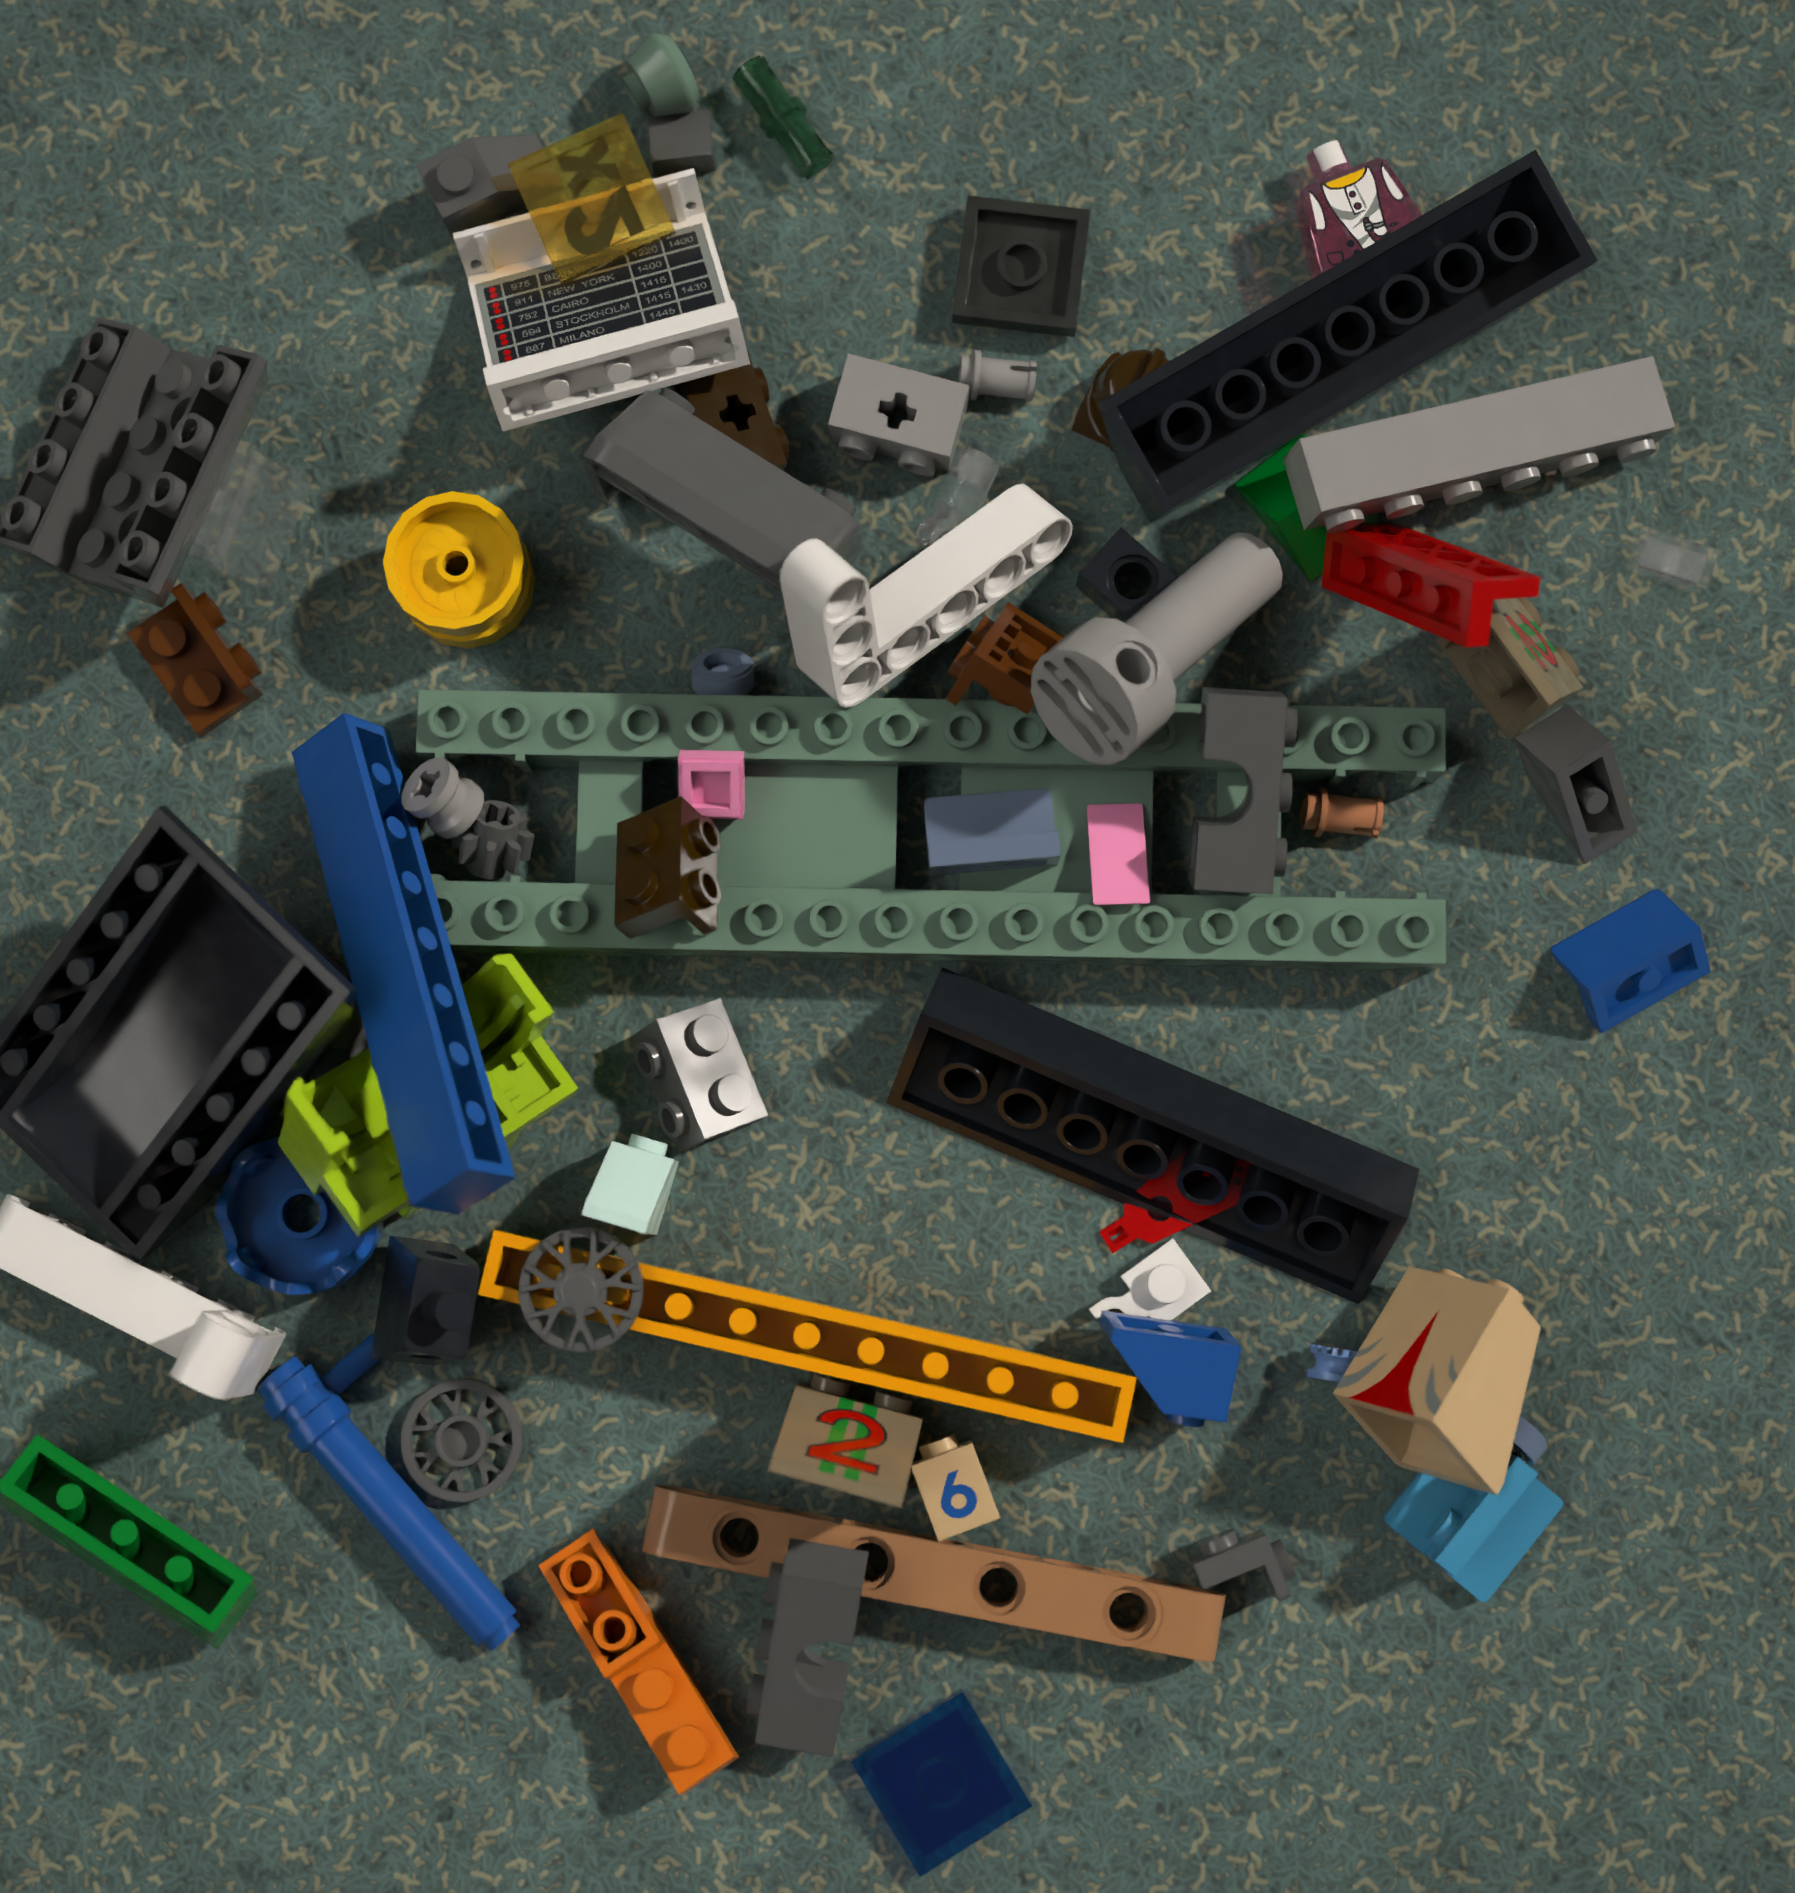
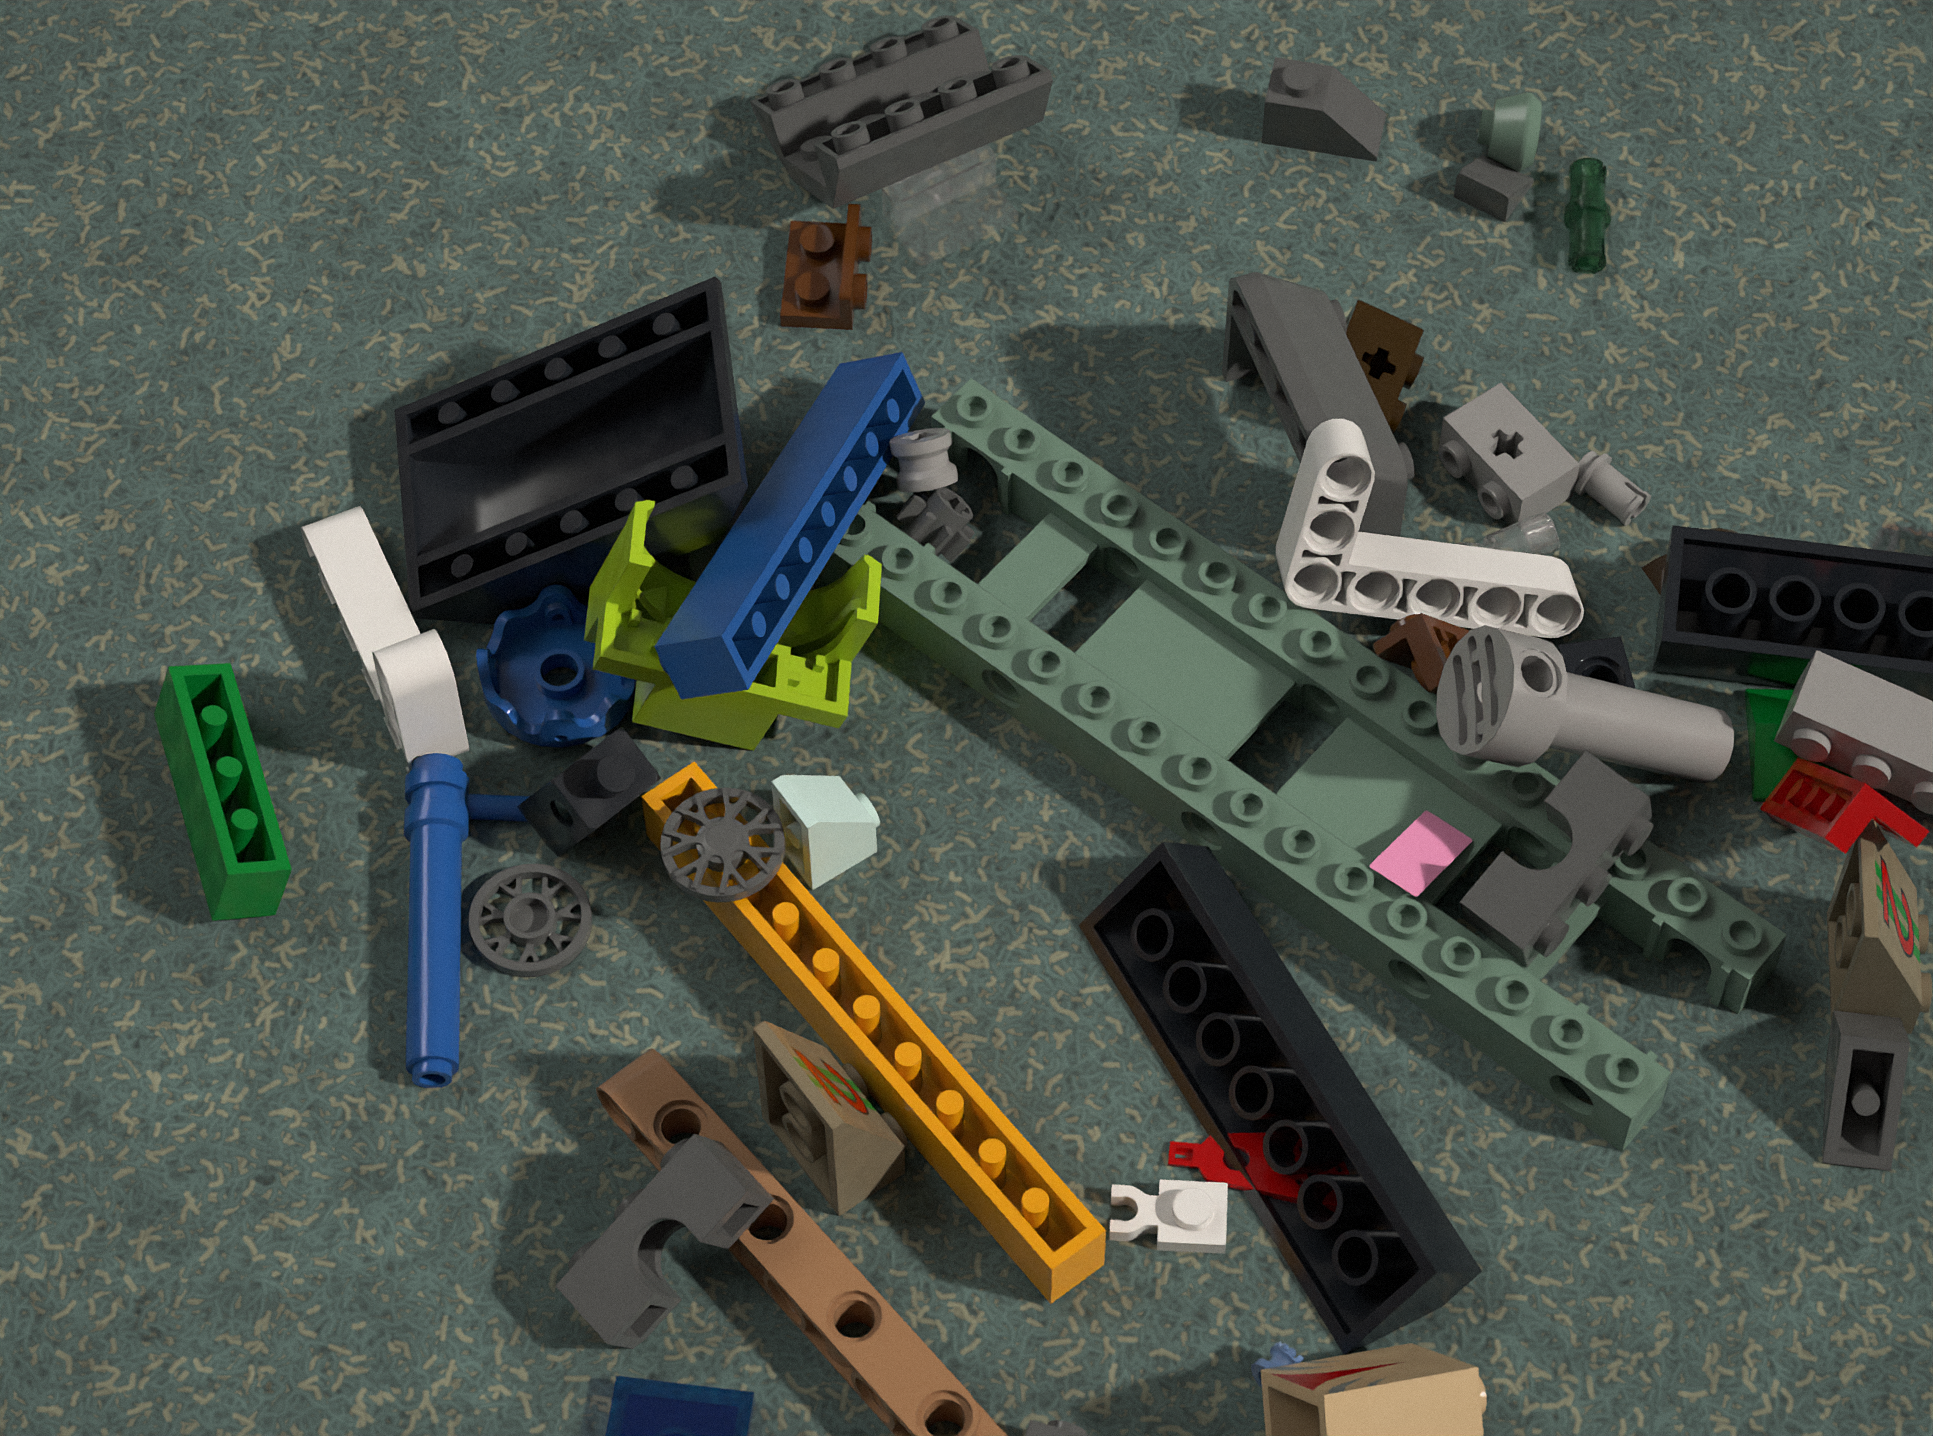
camera: 35 degrees right, 25 degrees down
(445, 536) = (1073, 333): yellow wheel -> none
(591, 198) = (1389, 160): clear yellow tile -> none
(609, 332) = (1340, 224): panel -> none
(639, 1661) = (520, 1166): orange slope -> none
(666, 869) = (1056, 601): dark brown bracket -> none
(698, 1075) = (947, 794): bracket -> none
(713, 782) = (1137, 586): bright pink tile -> none
(722, 672) = (1217, 532): sand blue tile -> none
(953, 1486) = (885, 1228): tan brick -> none
(991, 831) = (1327, 772): sand blue panel -> none
(1021, 266) = (1694, 427): pearl dark grey plate -> none
(1179, 1363) = (1147, 1267): blue slope -> none
(1340, 814) = (1637, 974): nougat pin -> none
(1633, 958) = (1805, 1261): blue panel -> none

